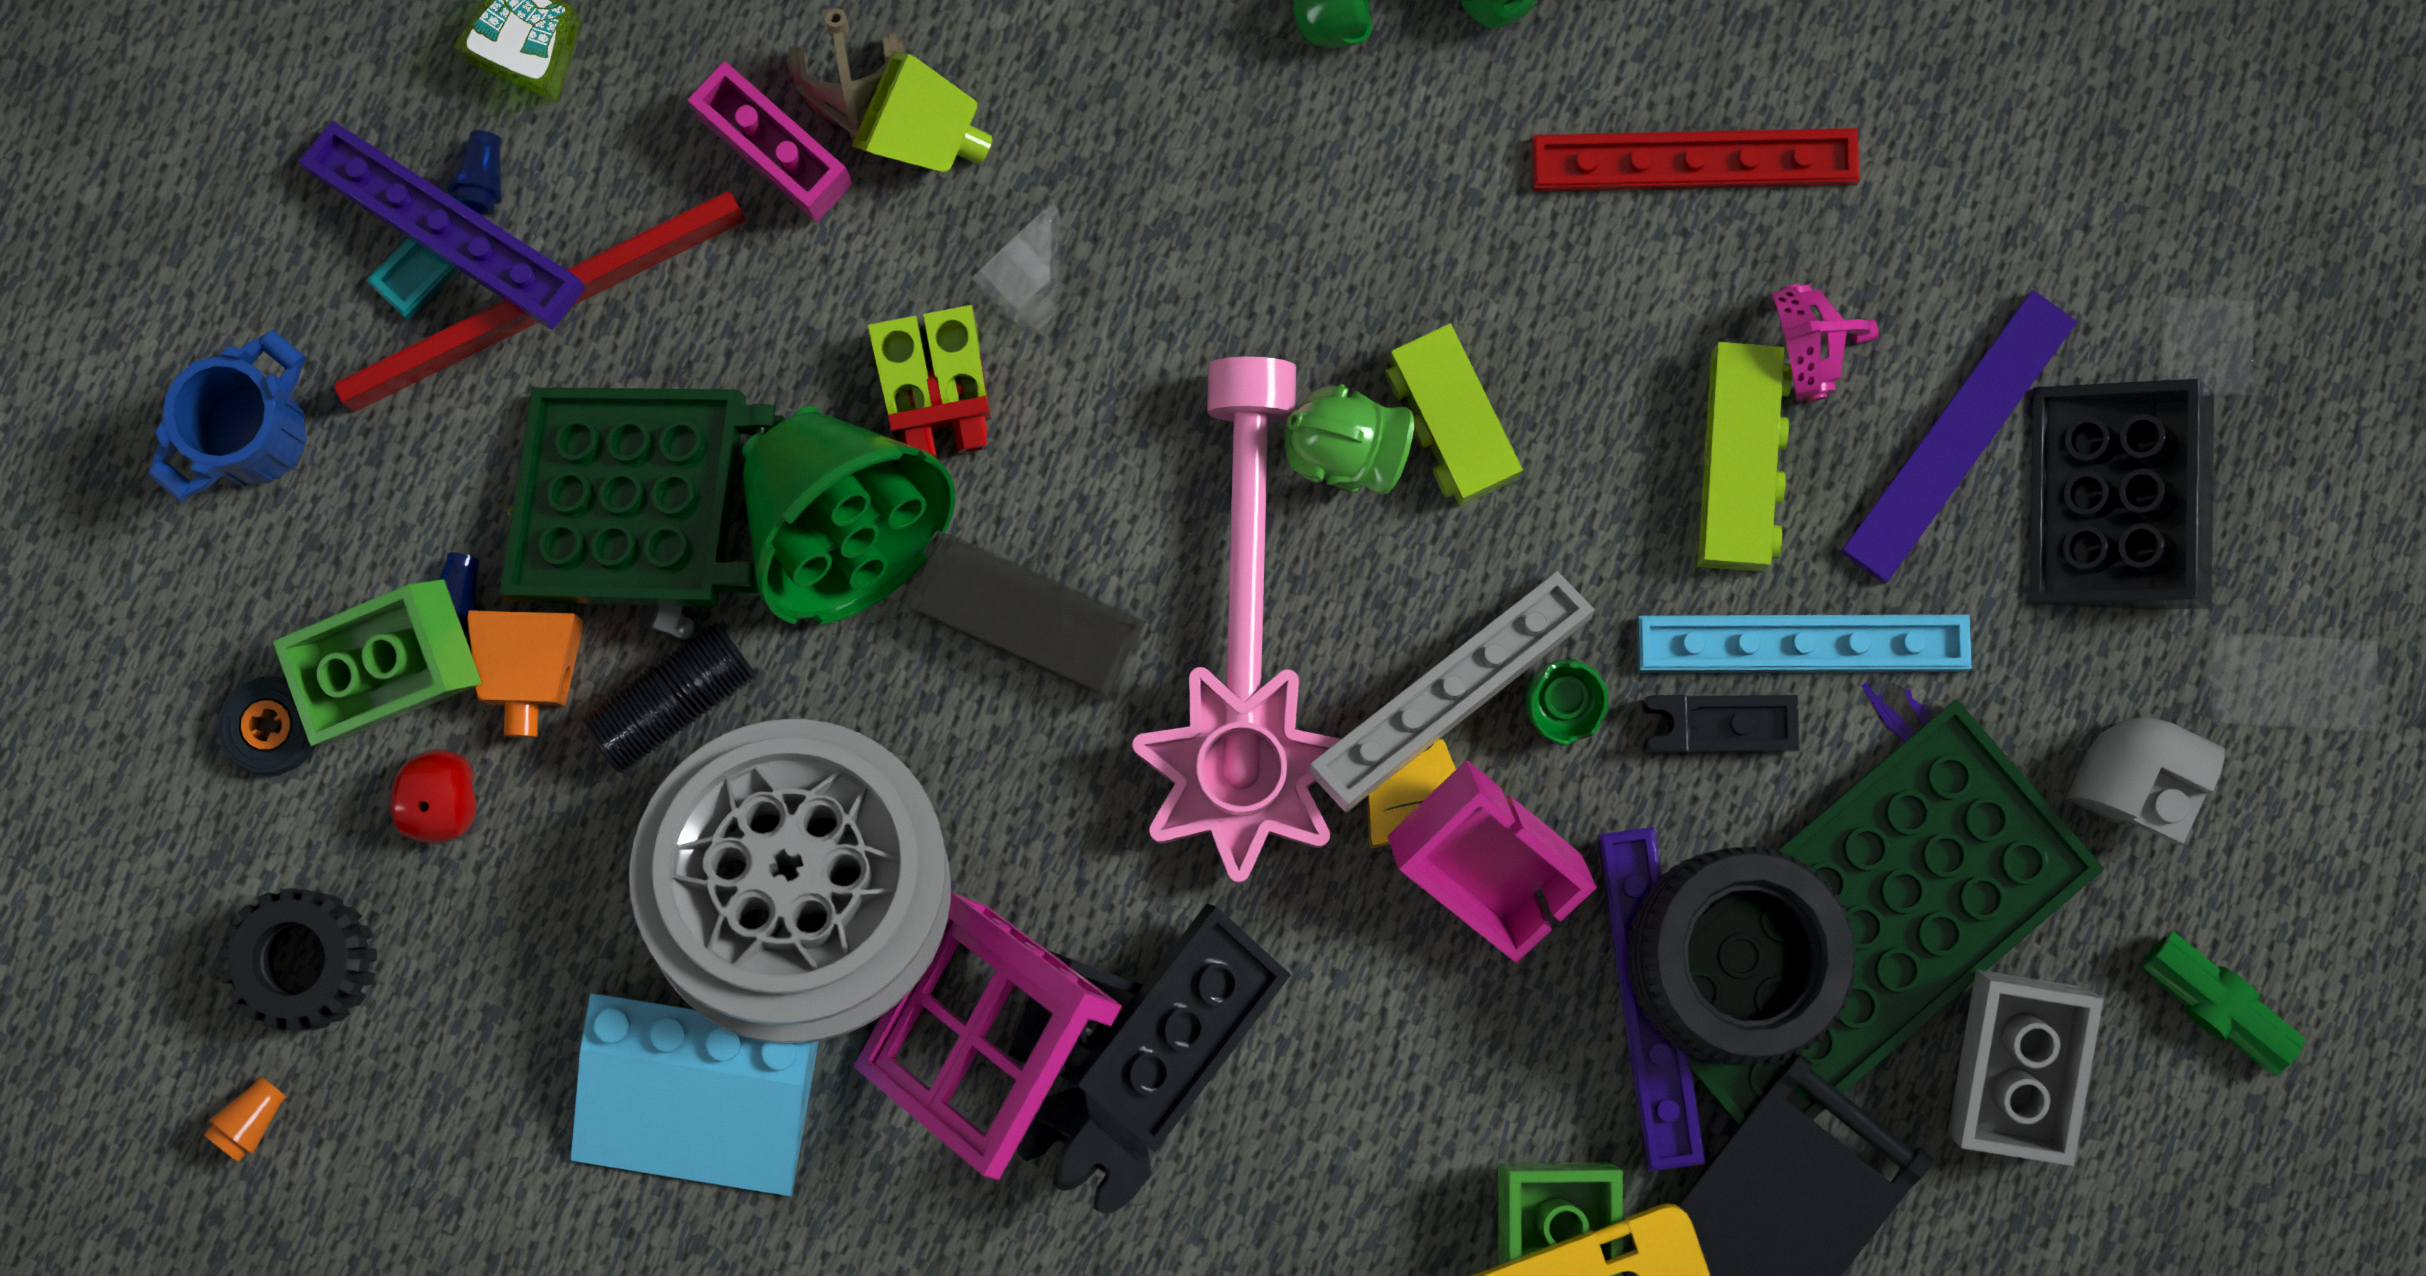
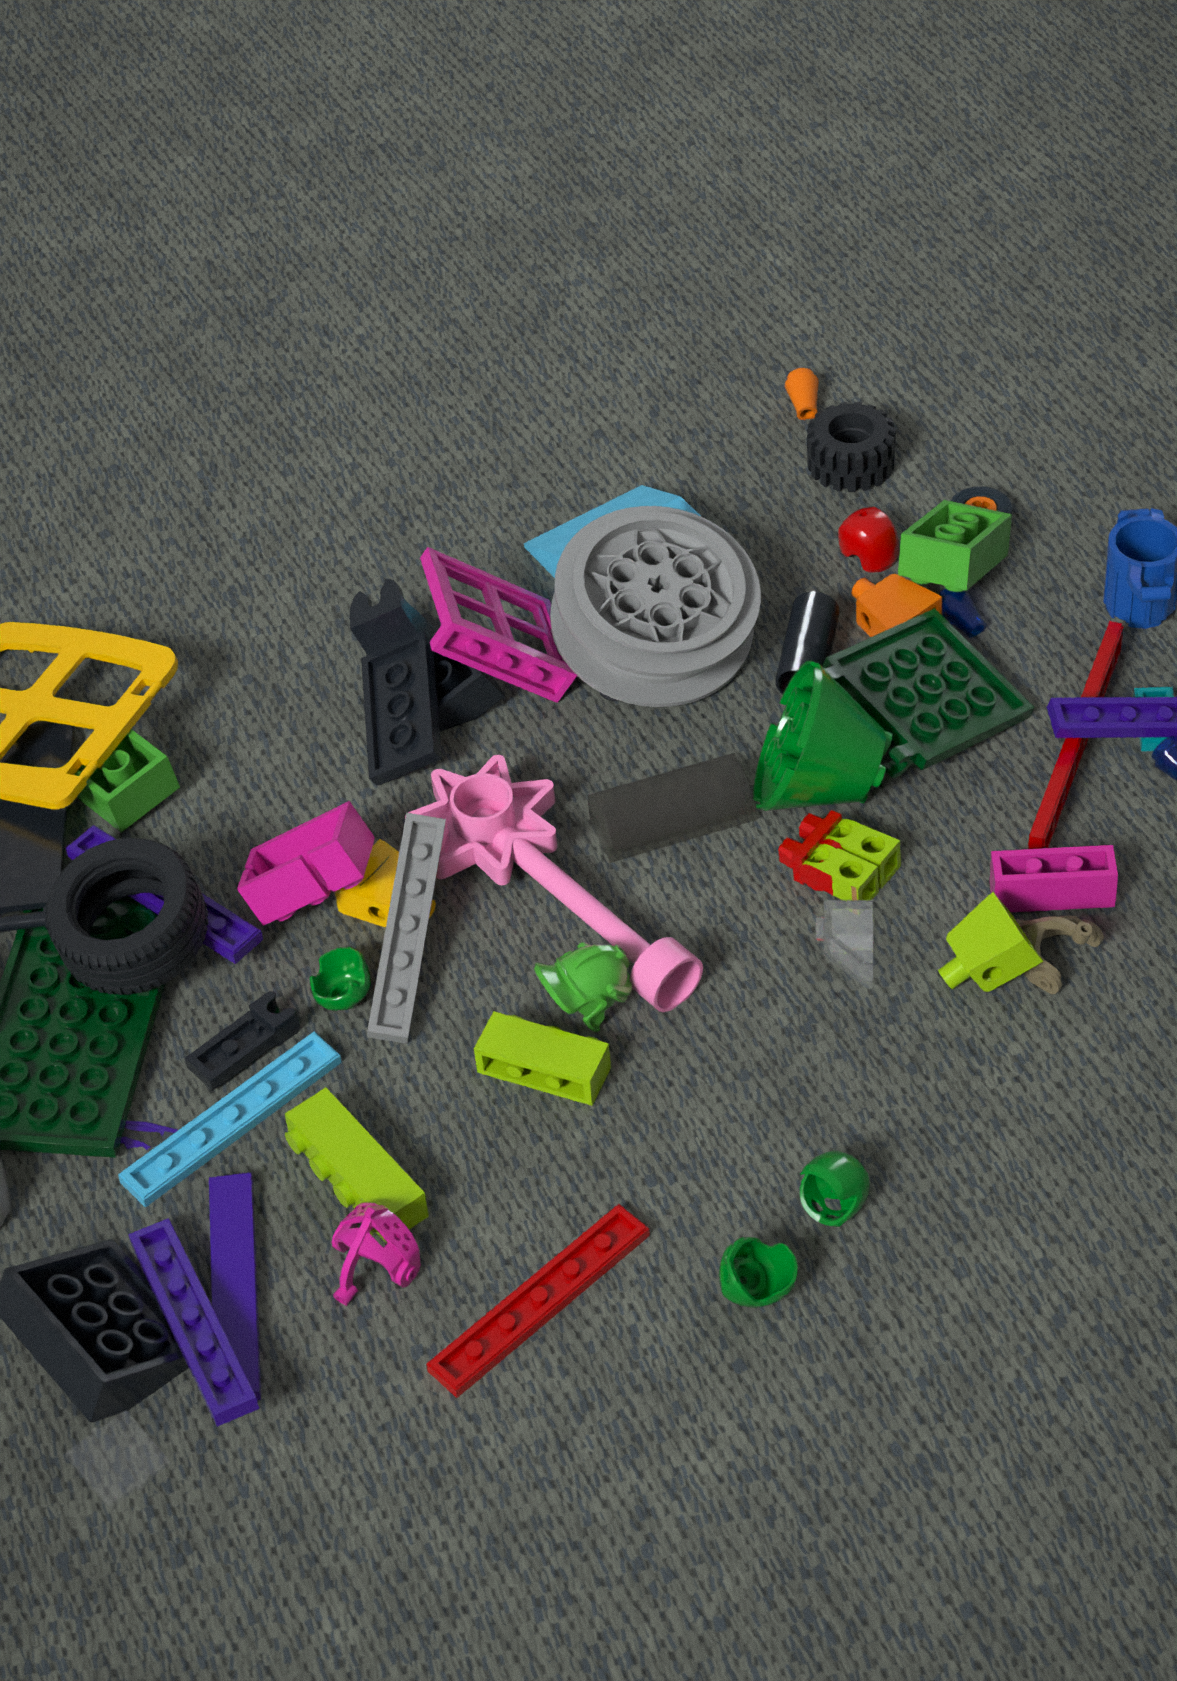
camera: 140 degrees right, 35 degrees down
(2042, 410) = (193, 1323): none -> dark purple plate

